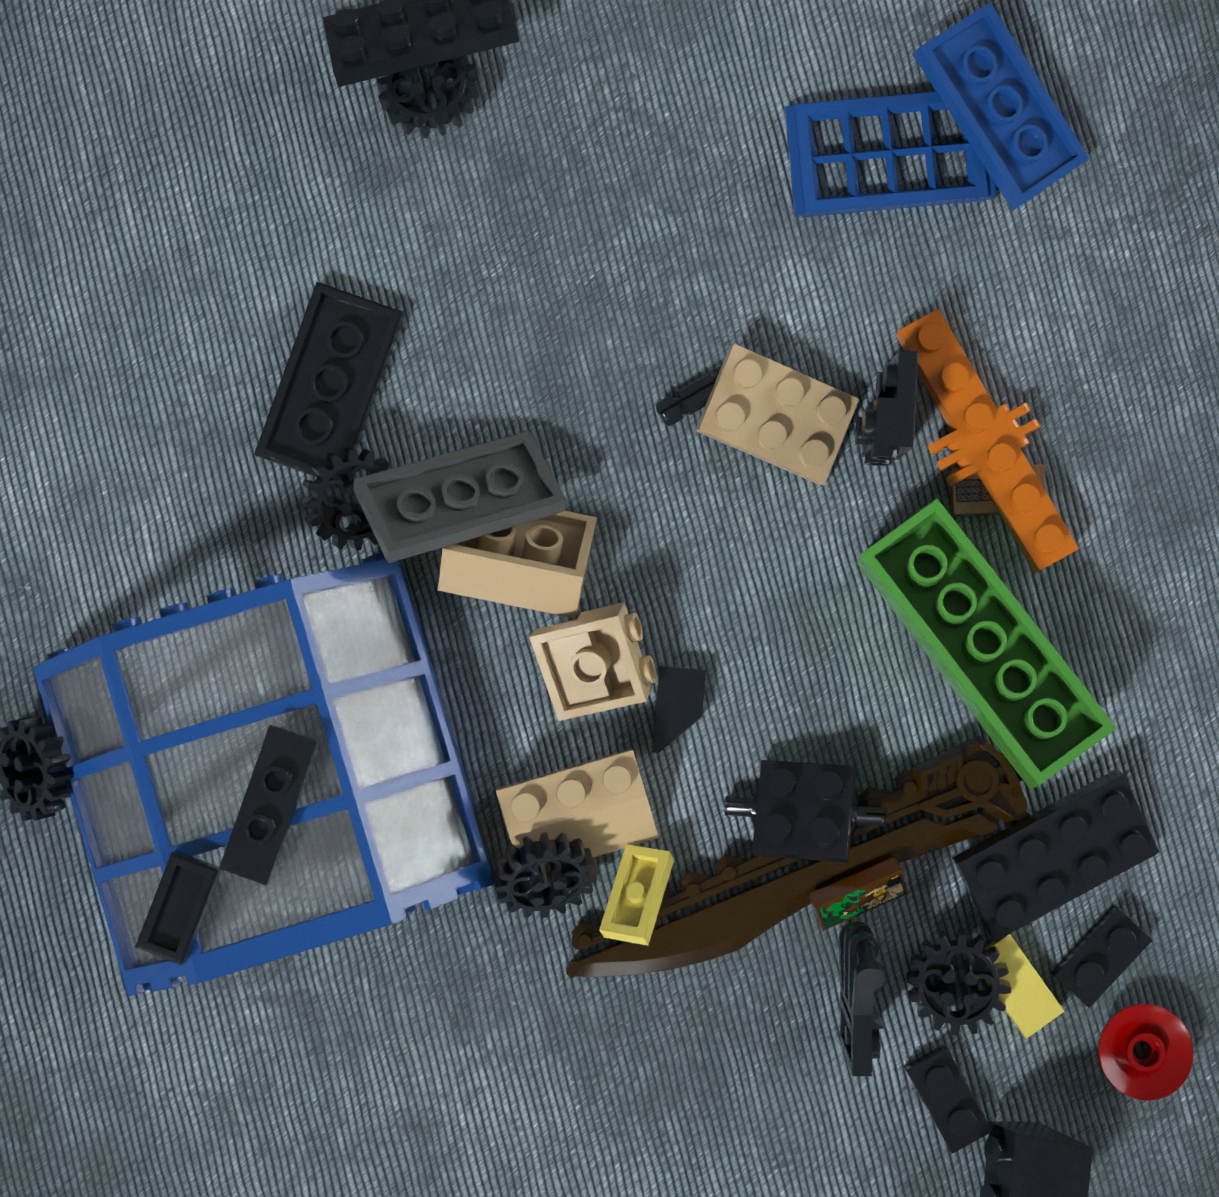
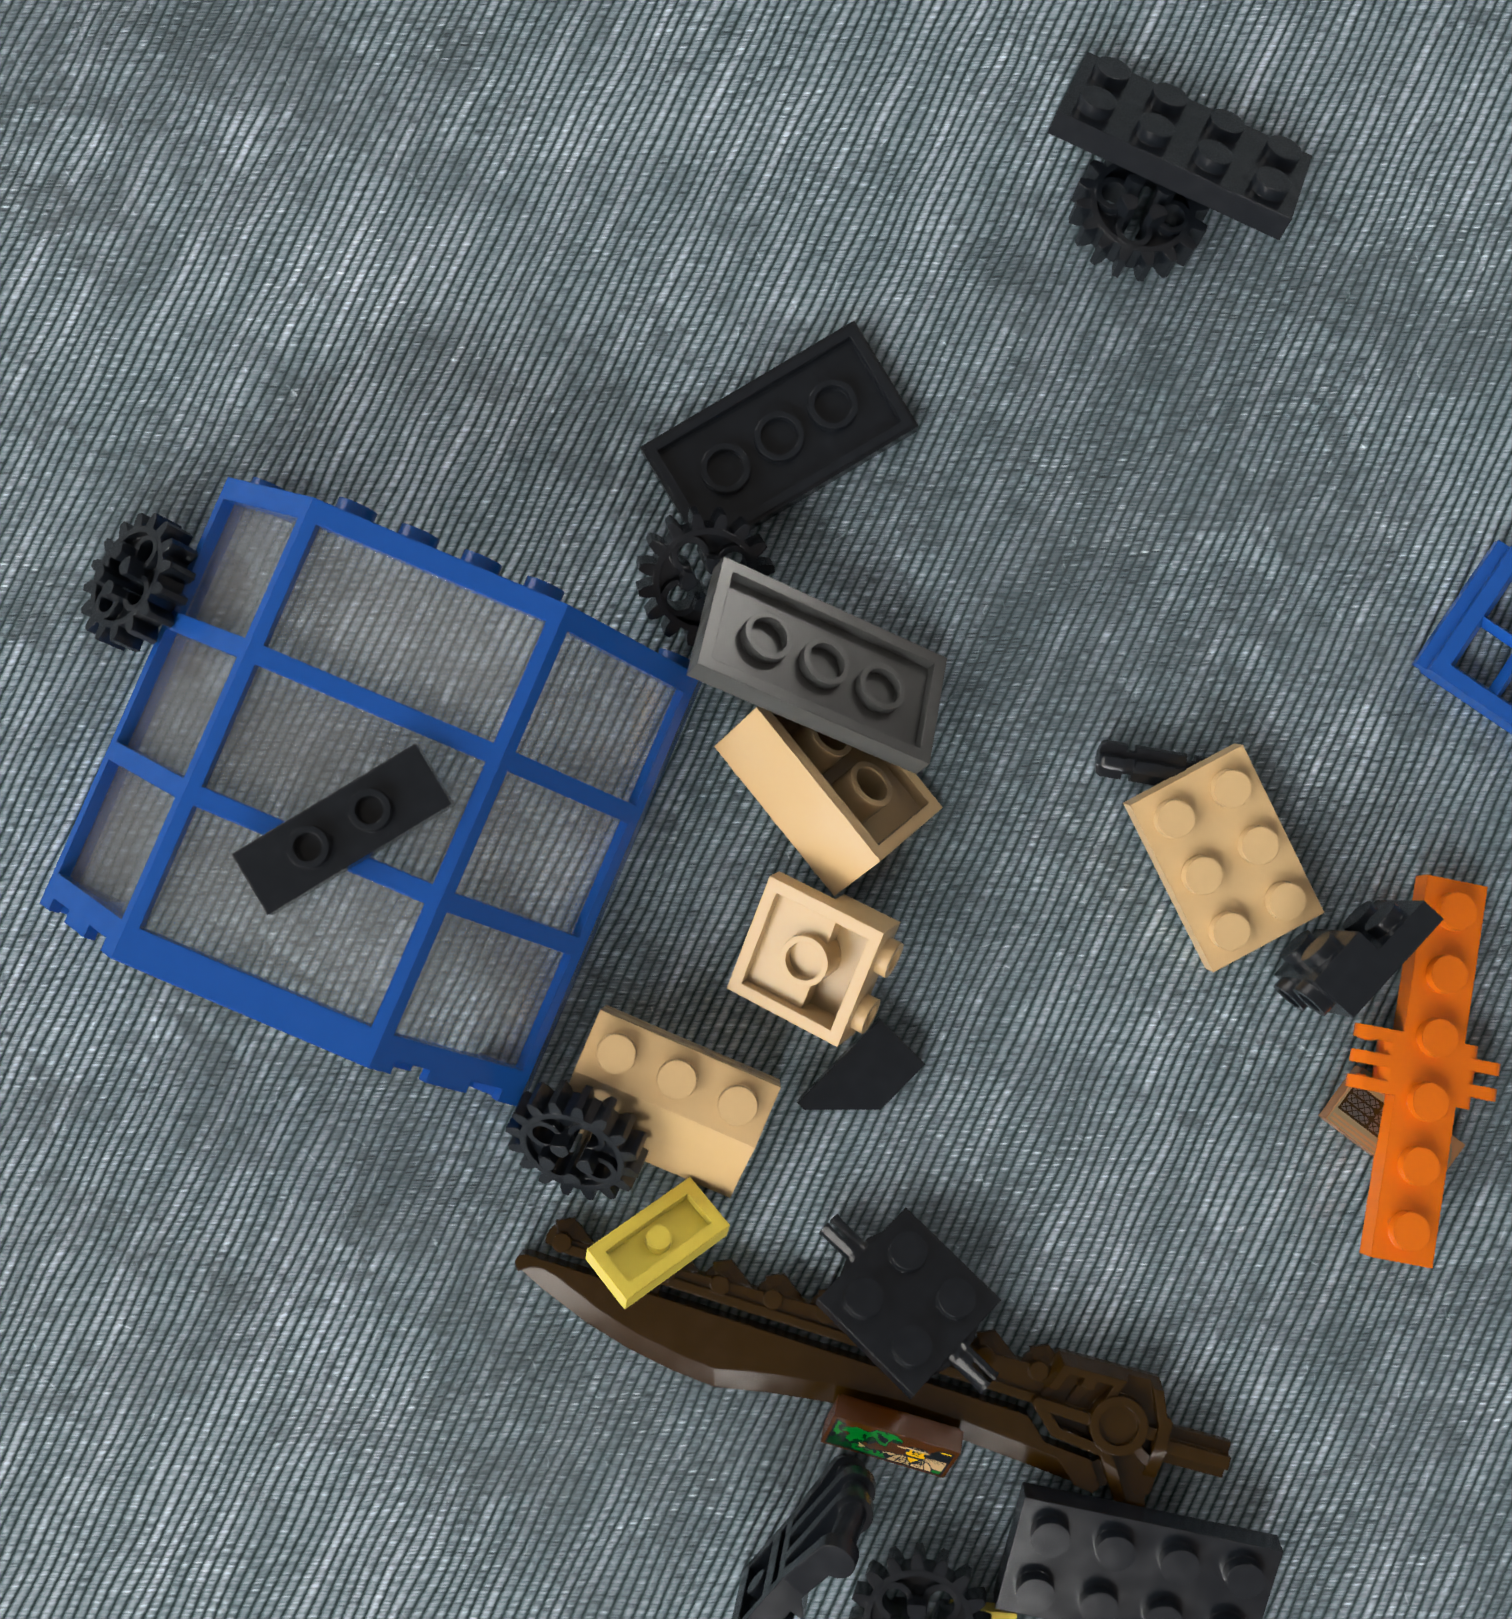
camera: 40 degrees right, 0 degrees up
(178, 907) = (155, 859): black tile -> none
(985, 644) = (1250, 1295): bright green brick -> none

